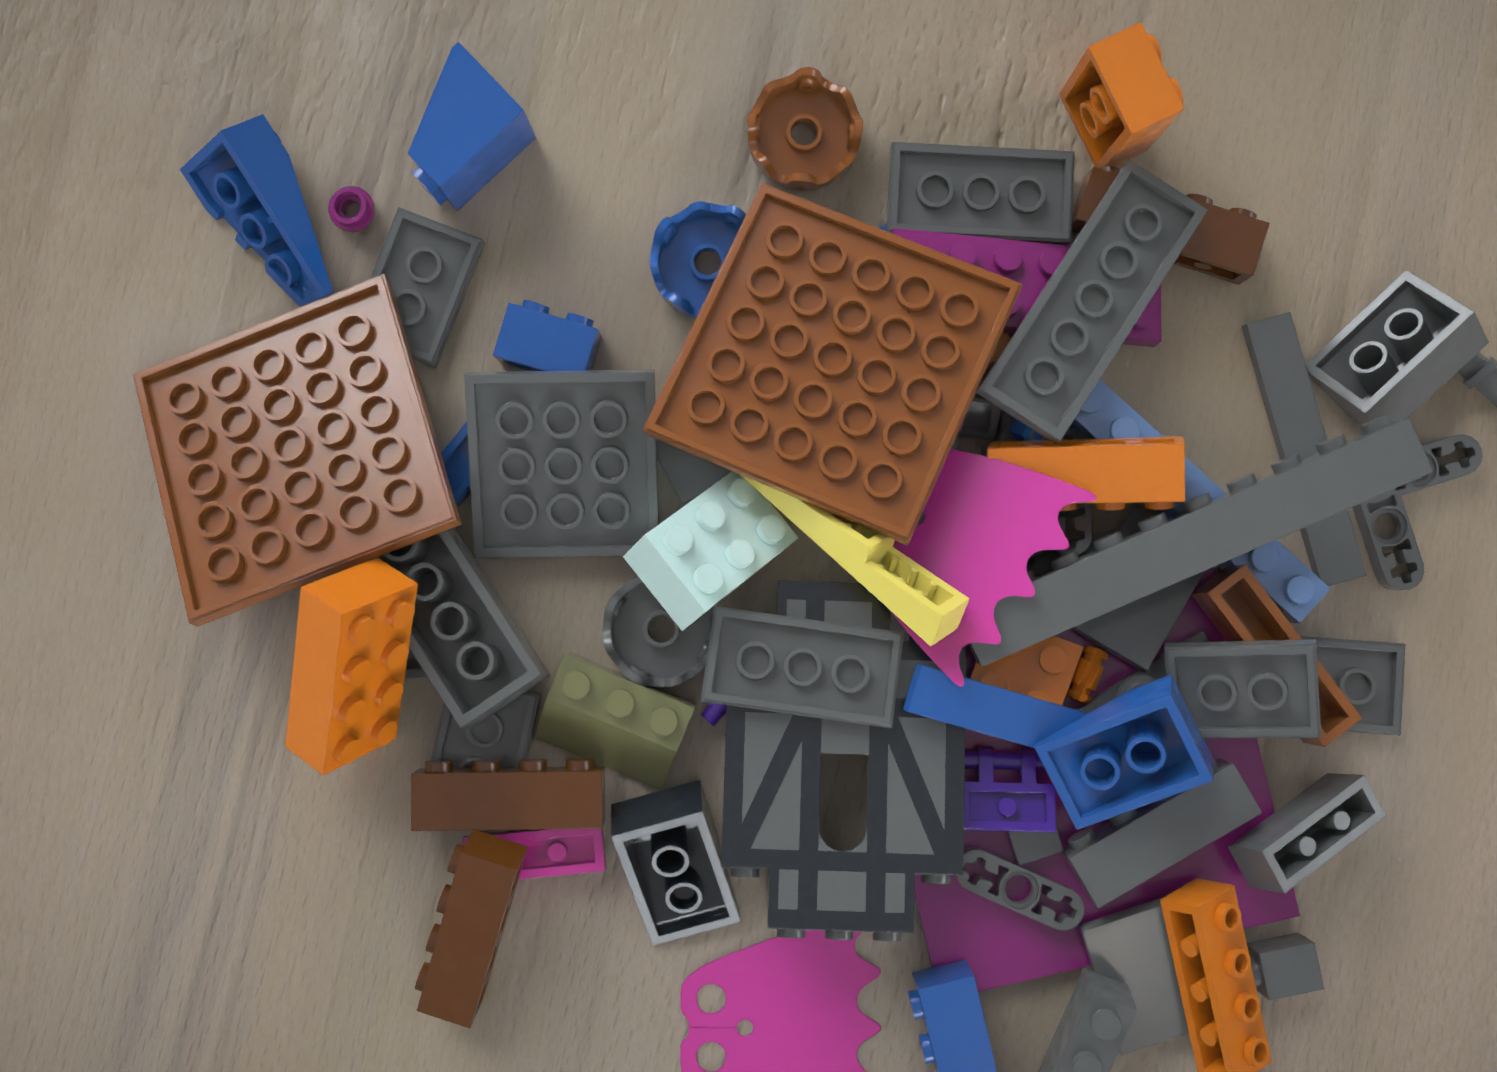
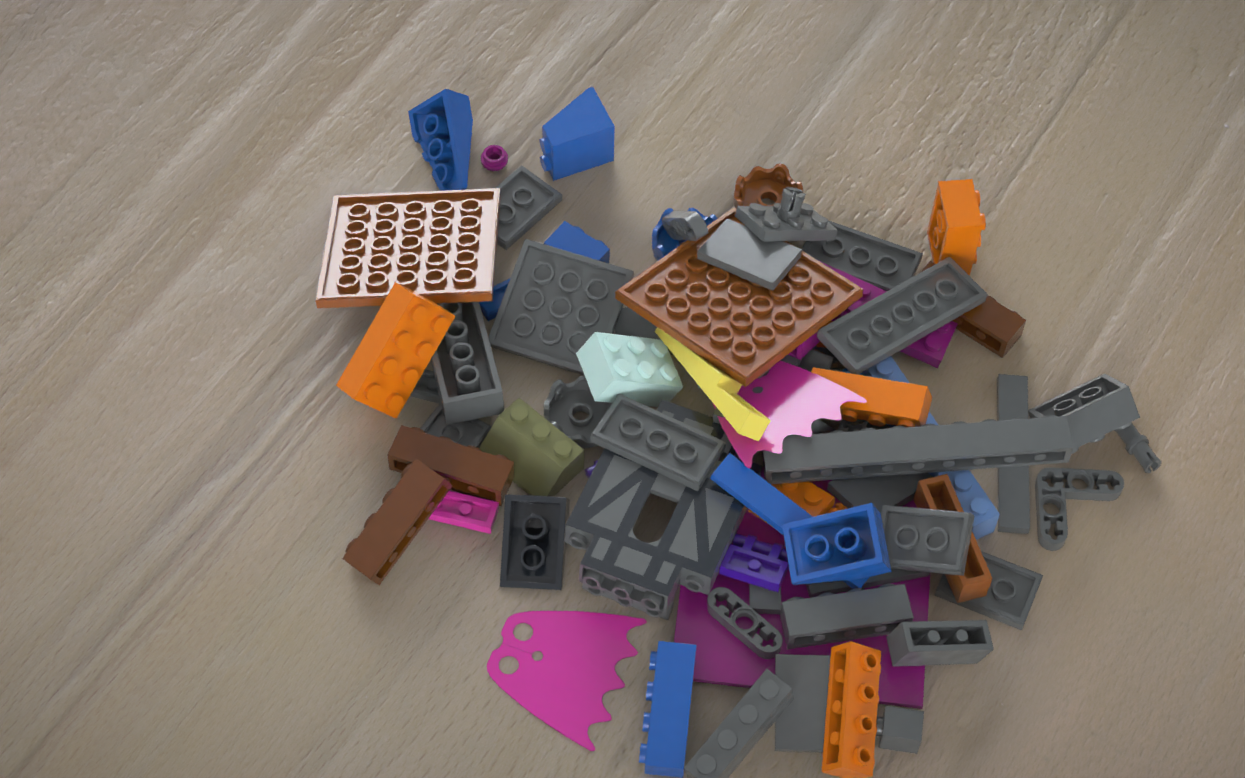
camera: 20 degrees right, 30 degrees down
(704, 259) = (685, 225): none -> dark grey beam
(824, 282) = (747, 256): none -> tile
(857, 192) = (786, 220): none -> dark grey plate

